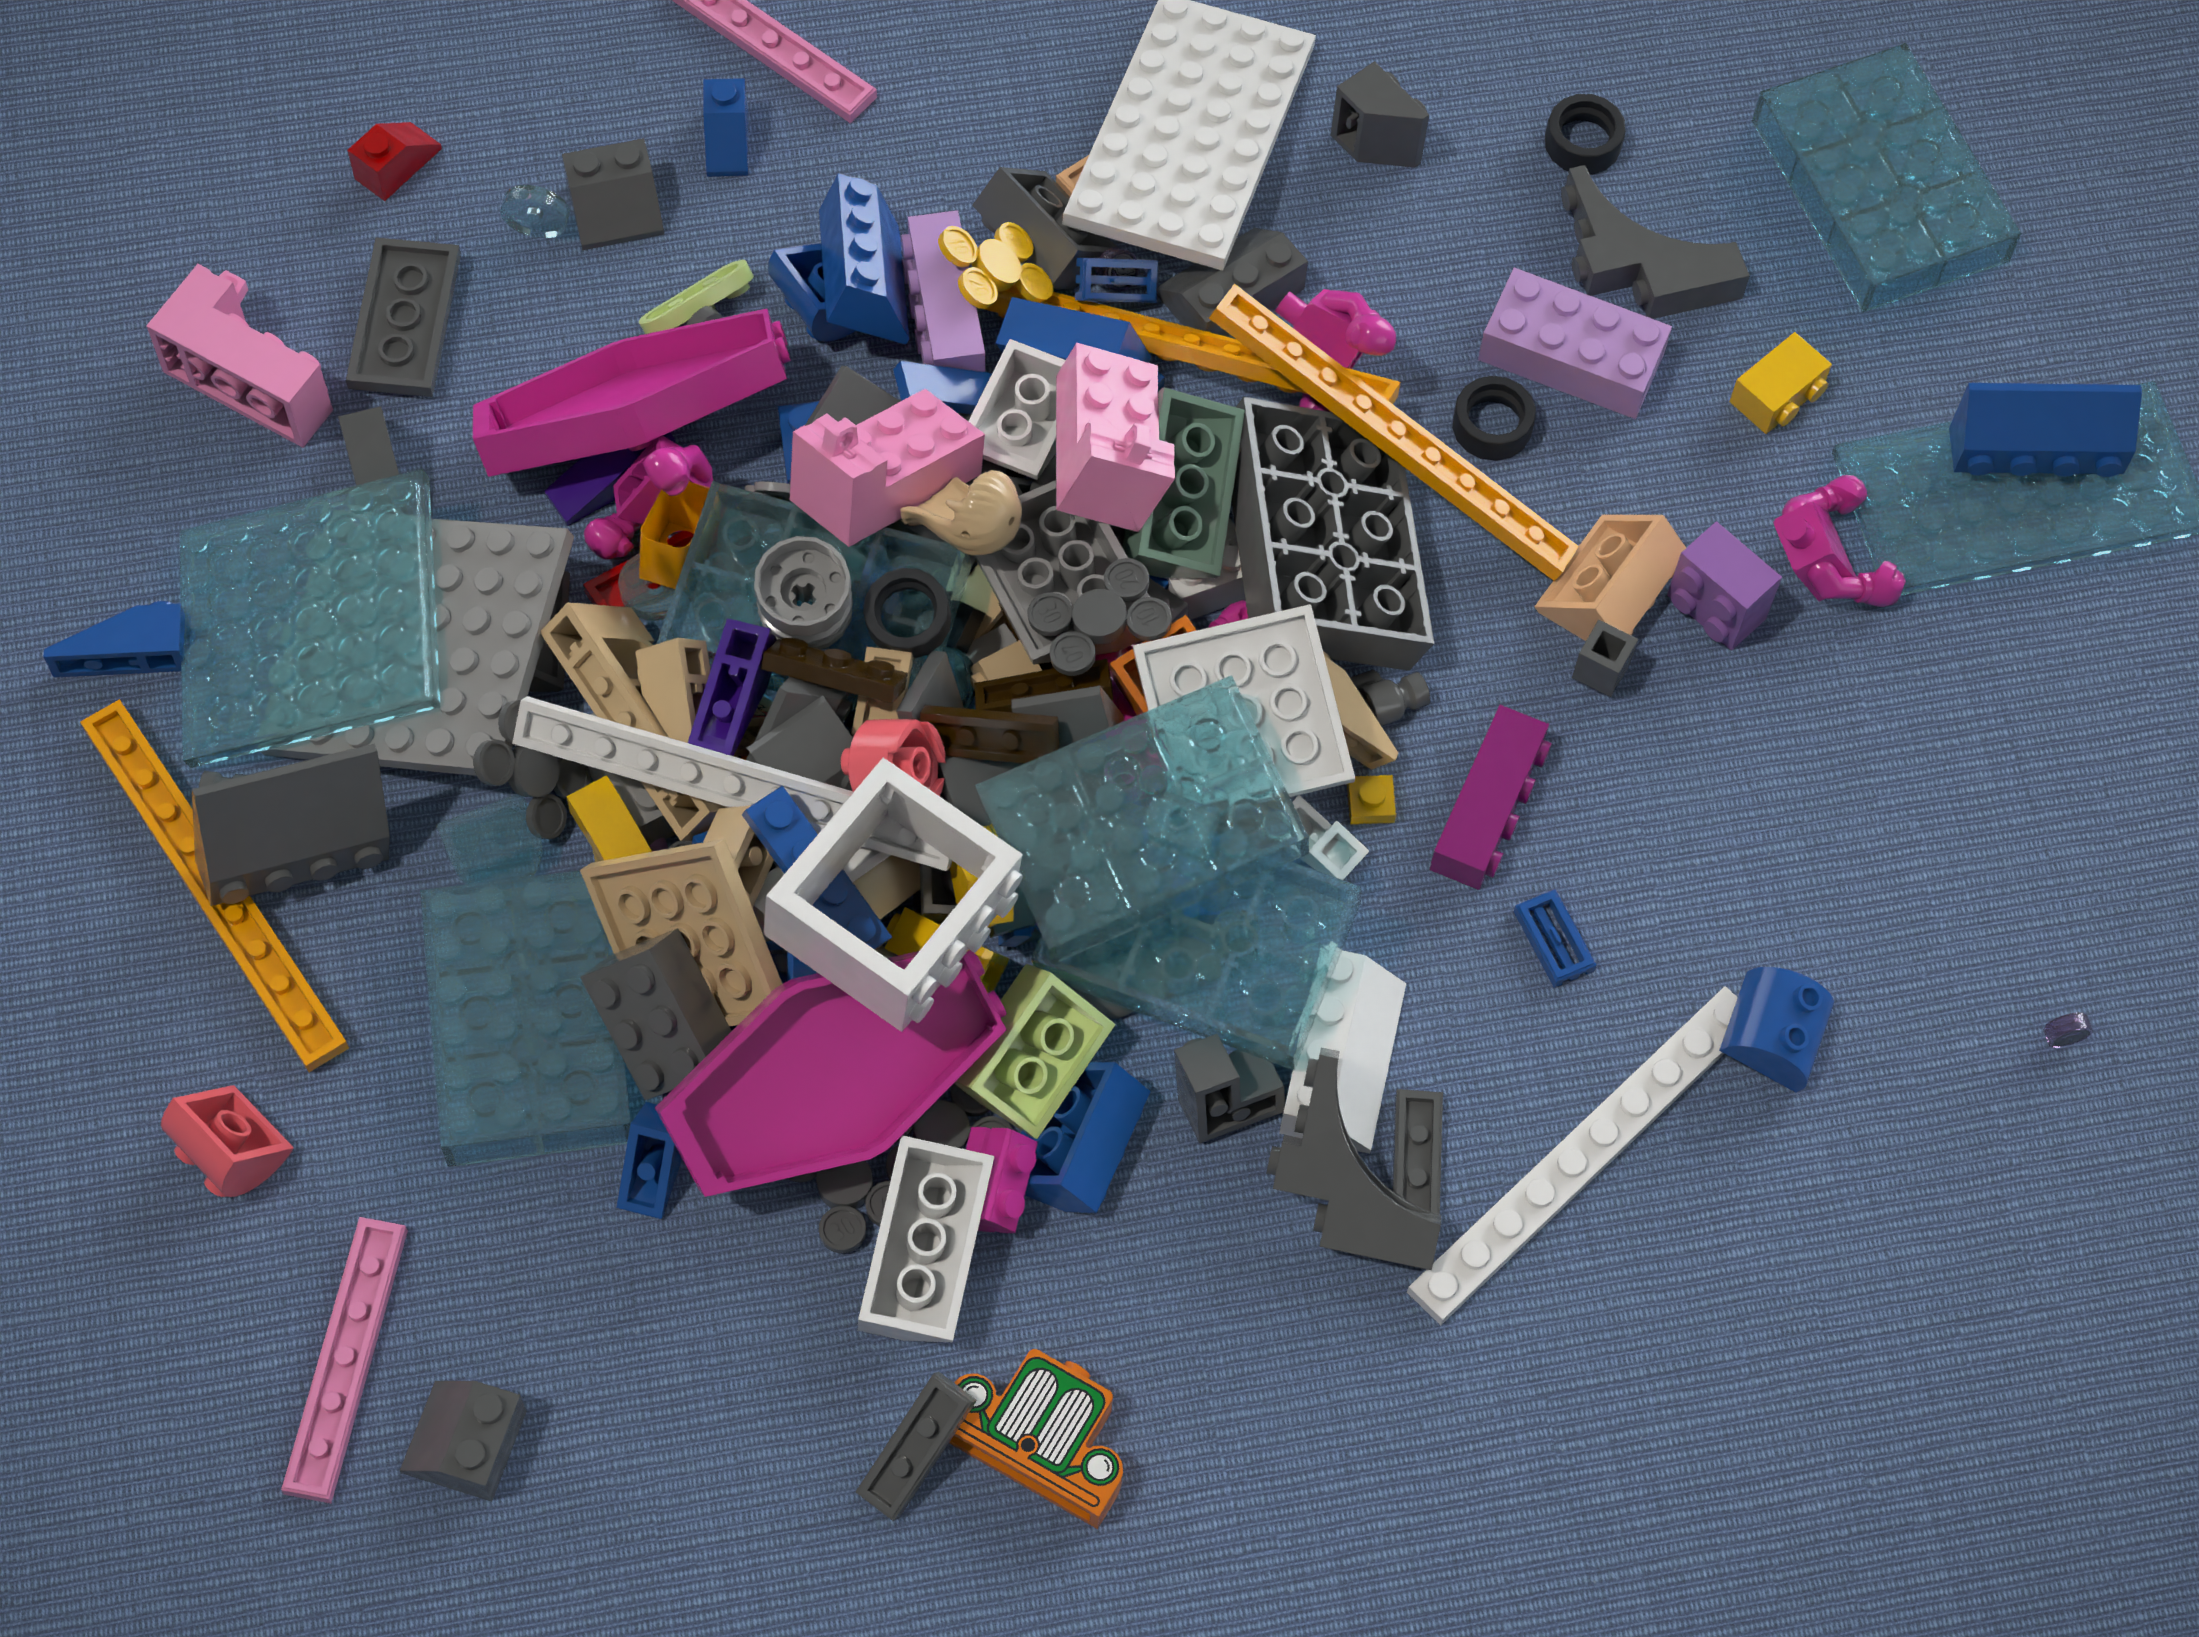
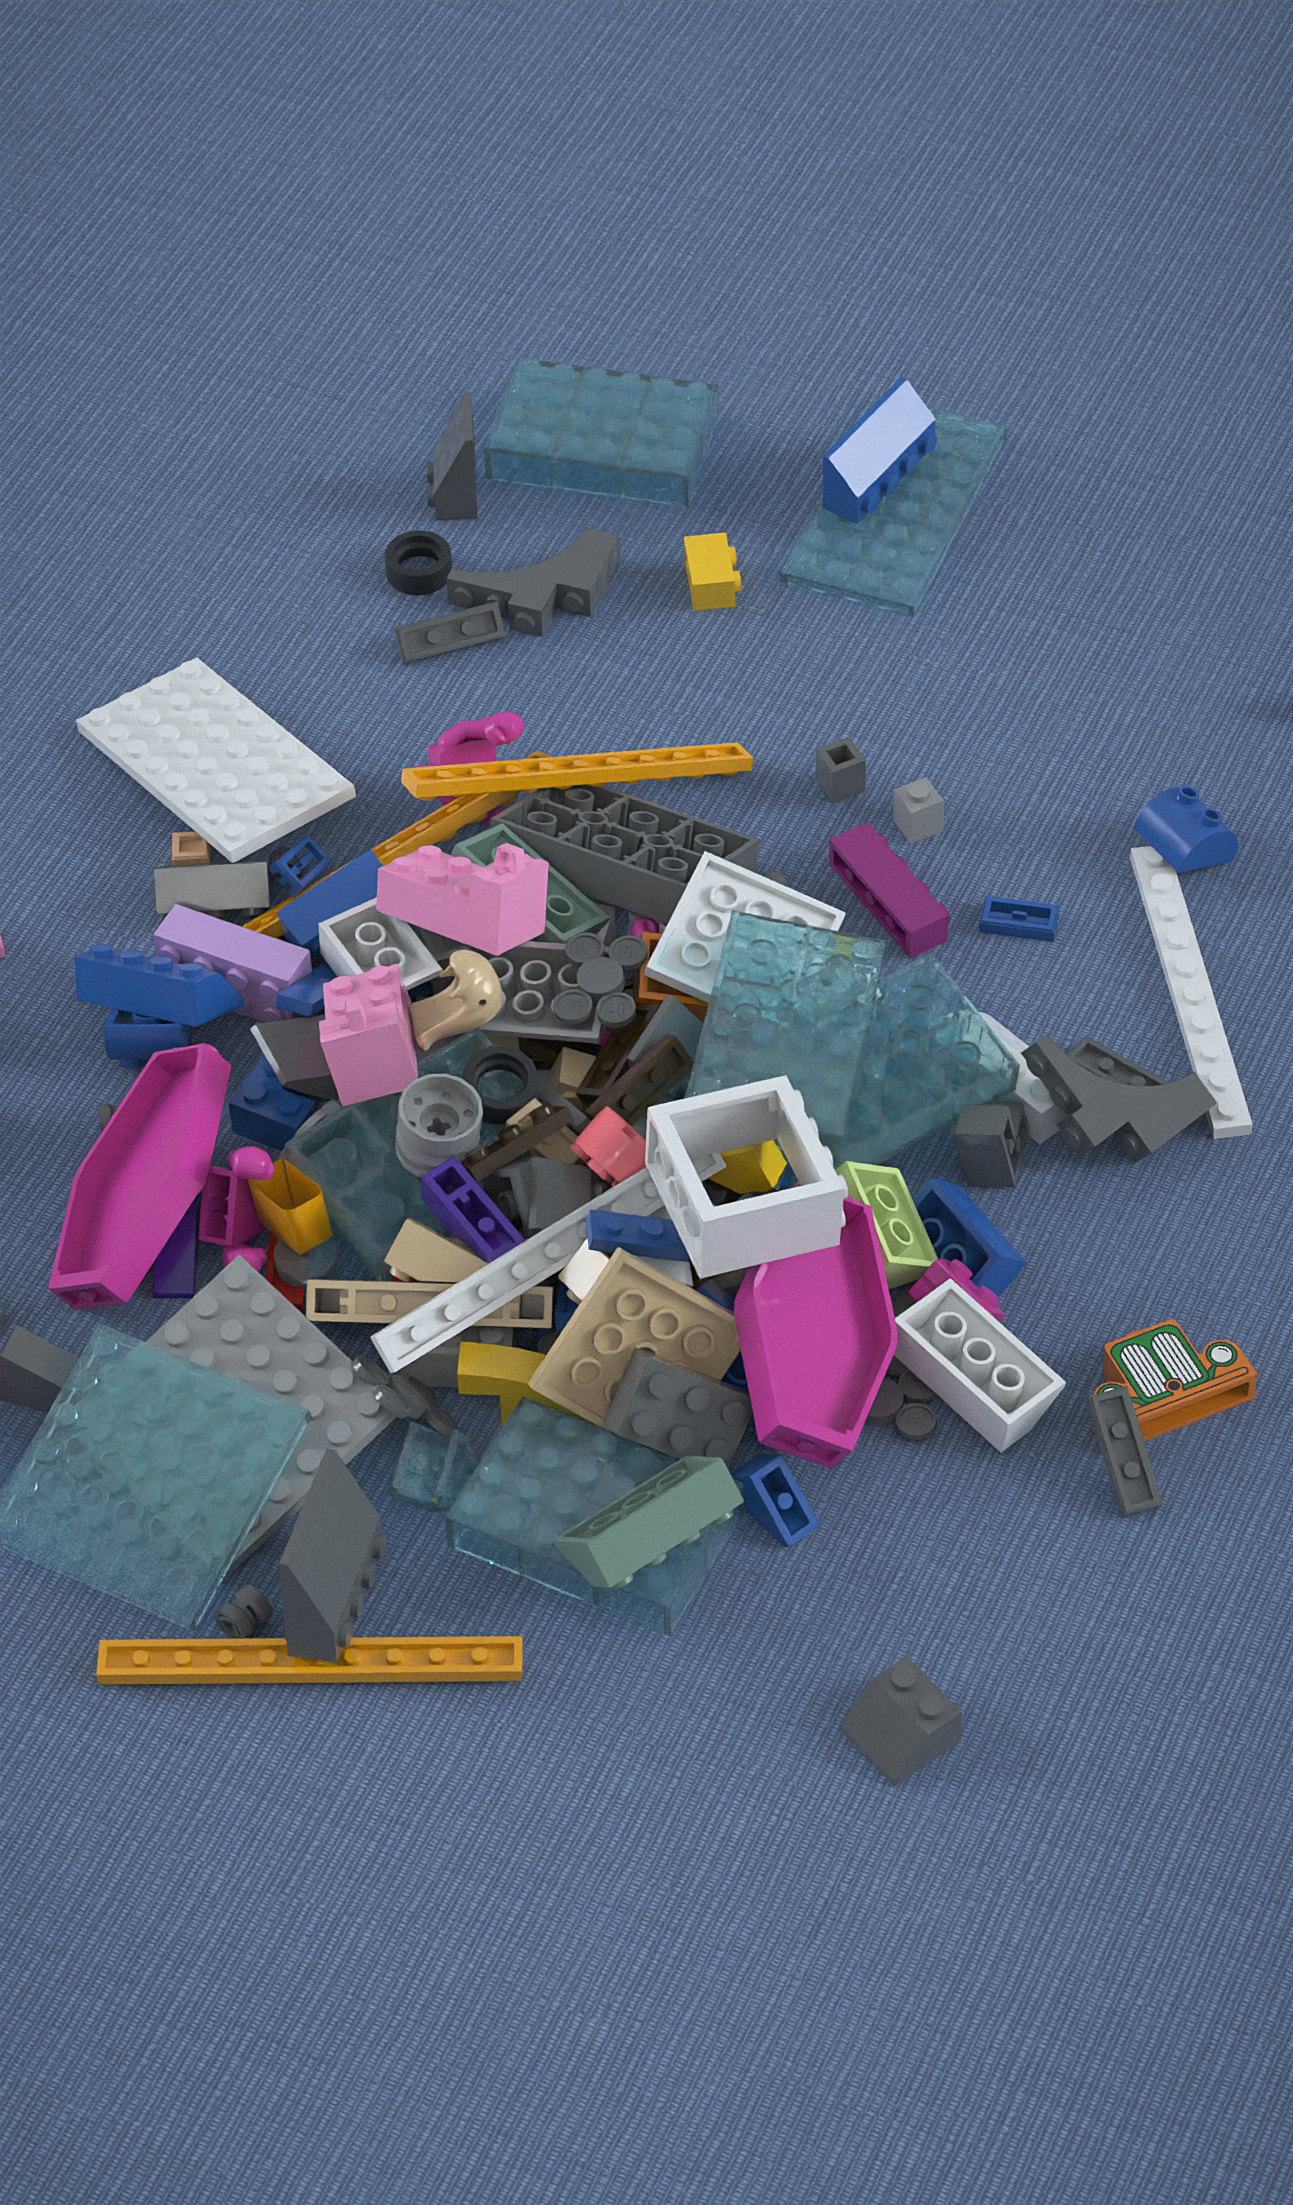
camera: 50 degrees left, 15 degrees down
(128, 643) = (57, 1605): blue slope -> none
(225, 1139) = (544, 1753): coral brick -> none
(344, 1360) = (778, 1773): bright pink tile -> none
(507, 1068) = (651, 1521): none -> sand green slope
(725, 282) = (78, 1114): yellowish green plate -> none
(995, 265) = (235, 910): yellow piece -> none
(1260, 264) = (368, 817): dark grey slope -> none
(1379, 119) = (311, 653): dark grey slope -> none
(1496, 390) = (597, 712): black tyre -> none
(1515, 215) = (449, 632): none -> dark grey tile
(1574, 343) = (581, 655): lavender brick -> none
(1613, 574) = (779, 732): light nougat slope -> none
(1613, 760) = (918, 810): none -> light grey brick
(1719, 89) = (454, 467): none -> dark grey slope
(1723, 586) = (843, 677): medium lavender brick -> none
(1818, 551) = (860, 617): dark pink torso -> none

